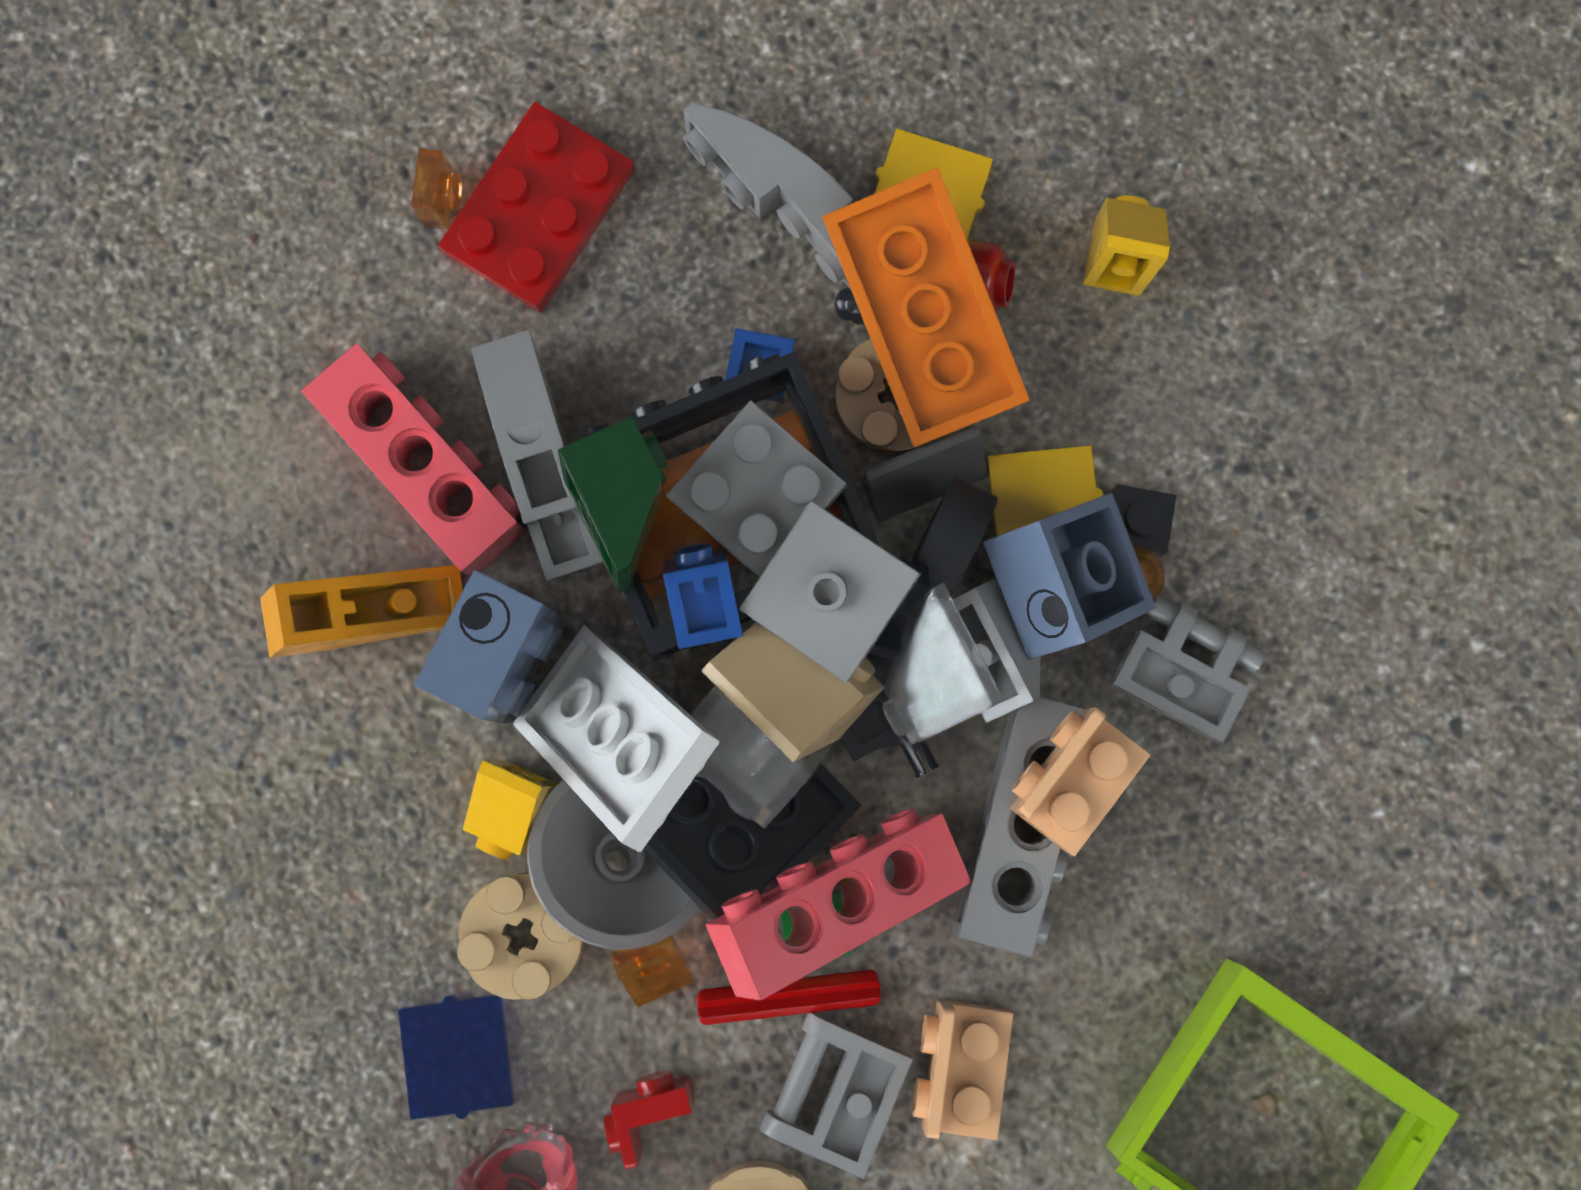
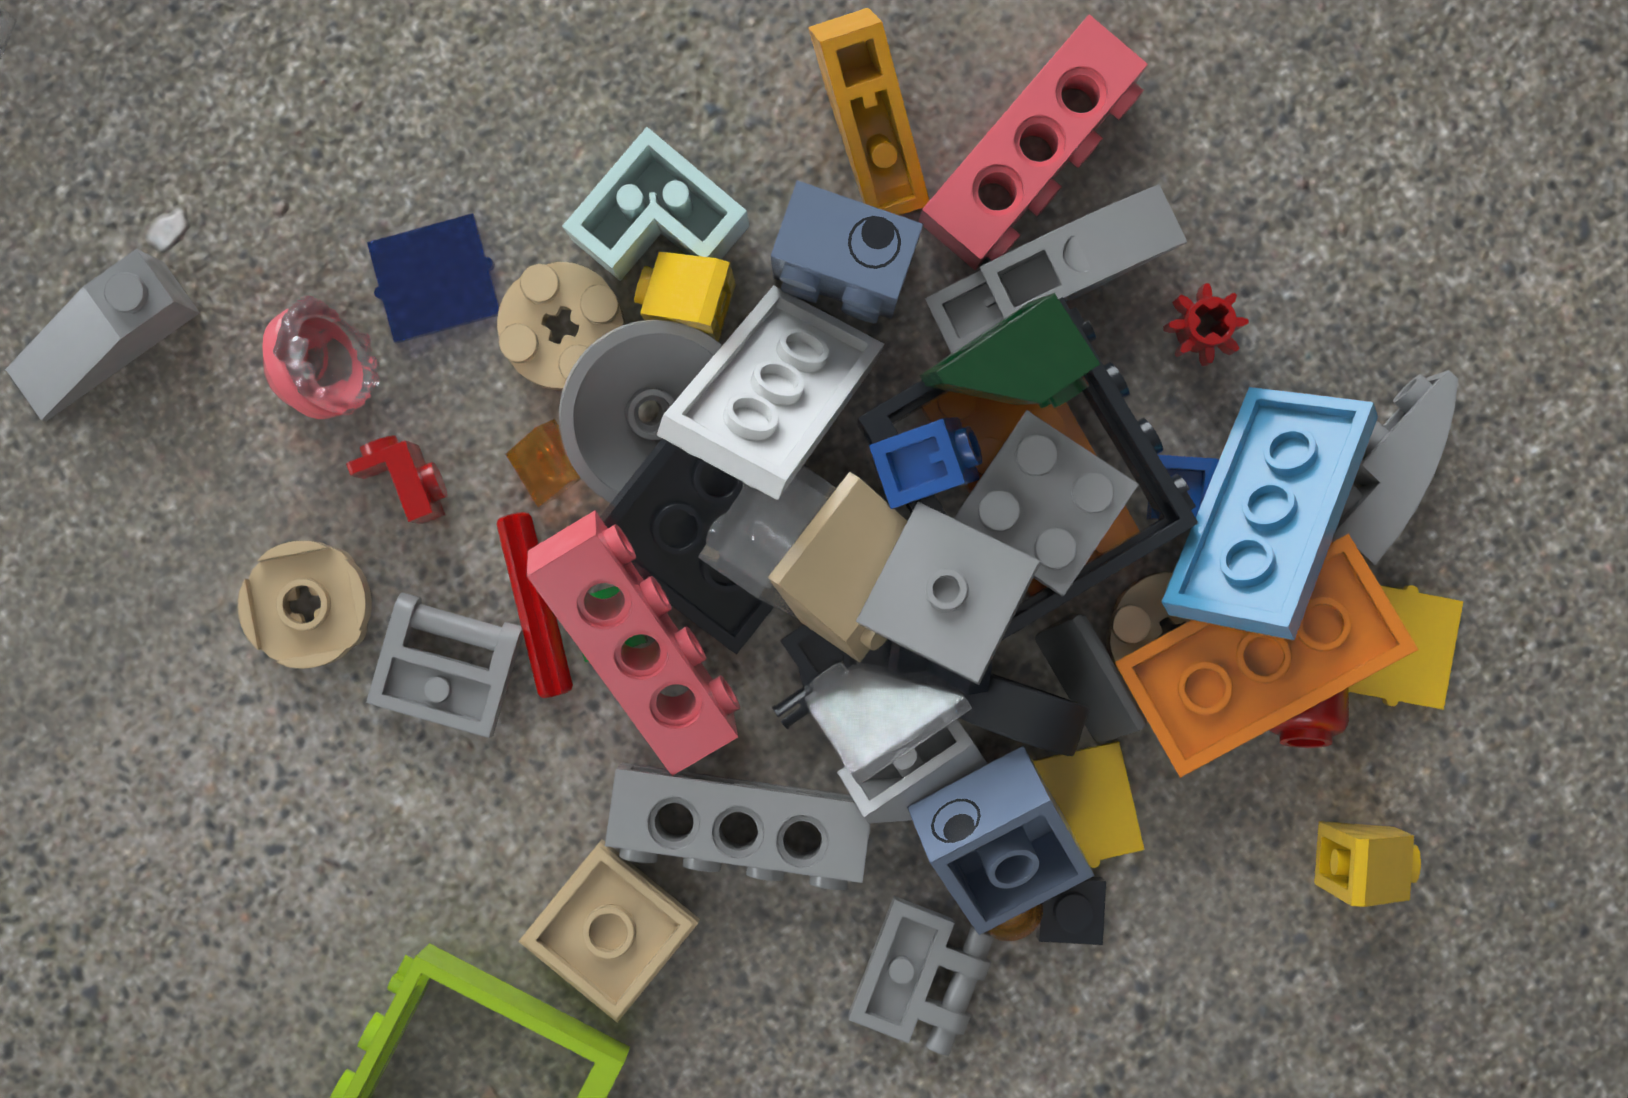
camera: 85 degrees right, 5 degrees up
(407, 832) = (650, 195): none -> light aqua brick
(435, 189) = (1327, 120): clear orange plate -> none
(537, 207) = (1324, 230): red plate -> none
(615, 309) = (1221, 329): none -> red gear
(792, 285) = (1271, 511): none -> plate
(964, 1070) = (485, 791): light nougat bracket -> none
(1078, 779) = (790, 872): light nougat bracket -> none
(1113, 964) = (609, 931): none -> tan plate

